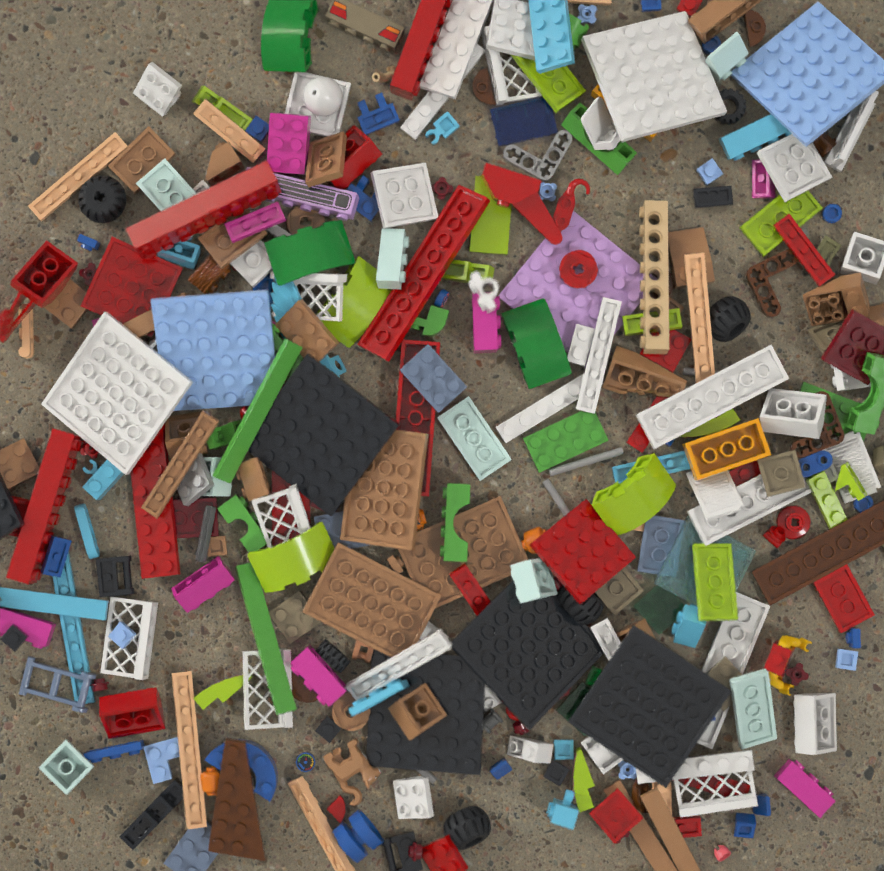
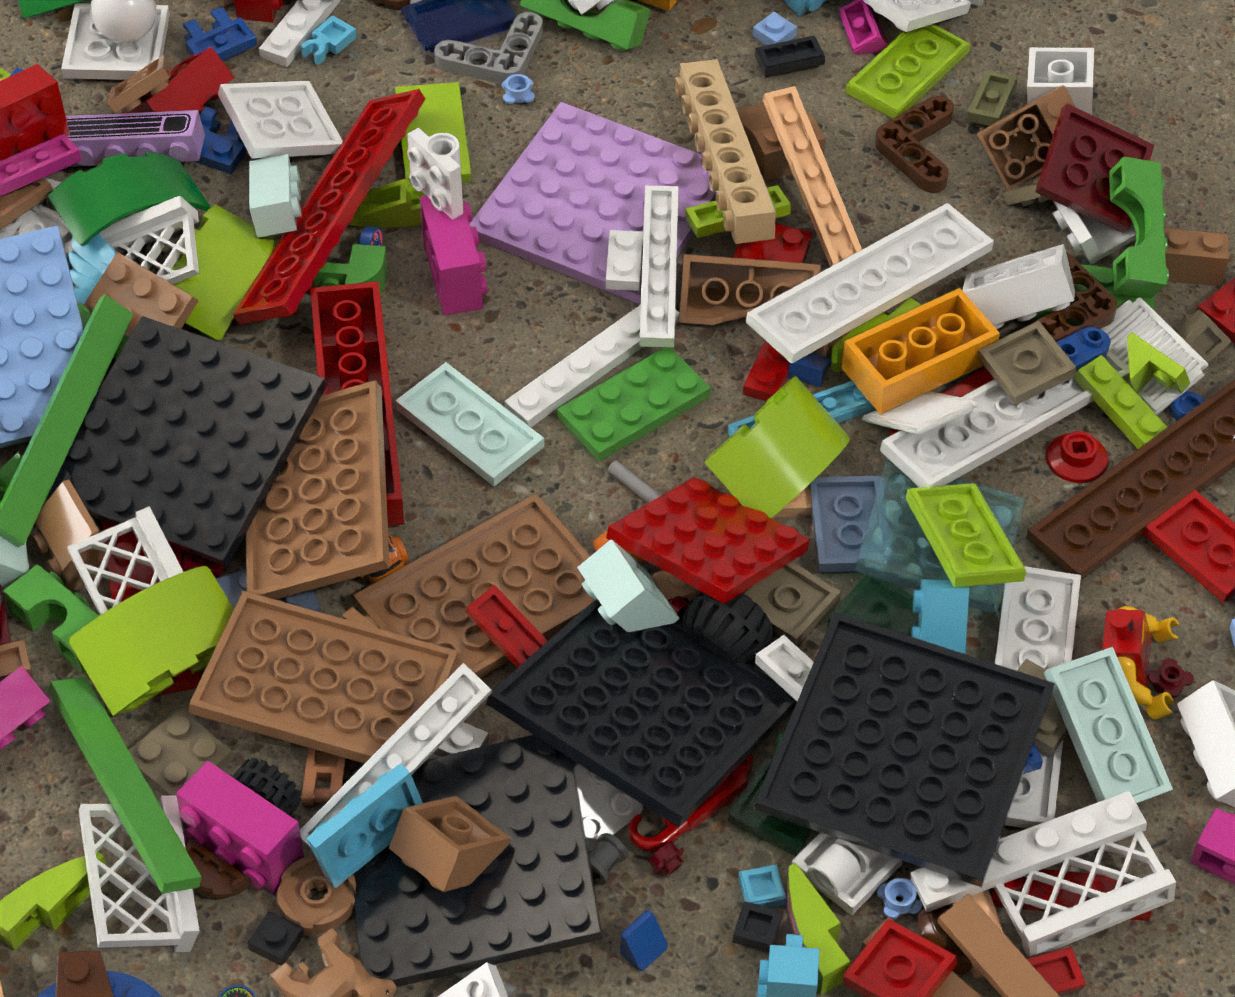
camera: 10 degrees left, 35 degrees down
(288, 142) = (80, 66): dark pink brick -> none
(433, 378) = (375, 327): sand blue plate -> none
(442, 183) = (343, 110): dark red plate -> none
(454, 547) = (458, 501): bright green arch -> none
(522, 193) = (467, 76): red slope -> none
(530, 749) = (695, 891): white slope -> none
(536, 343) = (554, 270): green panel -> none
(576, 258) = (601, 176): red plate -> none
(586, 461) = (678, 428): light grey bar -> none
(729, 318) = (869, 192): black wheel -> none
(744, 825) = (1166, 959): blue slope -> none
(763, 805) = (1187, 910): blue slope -> none
(775, 536) = (1051, 477): red plate -> none
(804, 250) = (957, 85): red plate -> none
(831, 213) = (987, 51): blue tile -> none

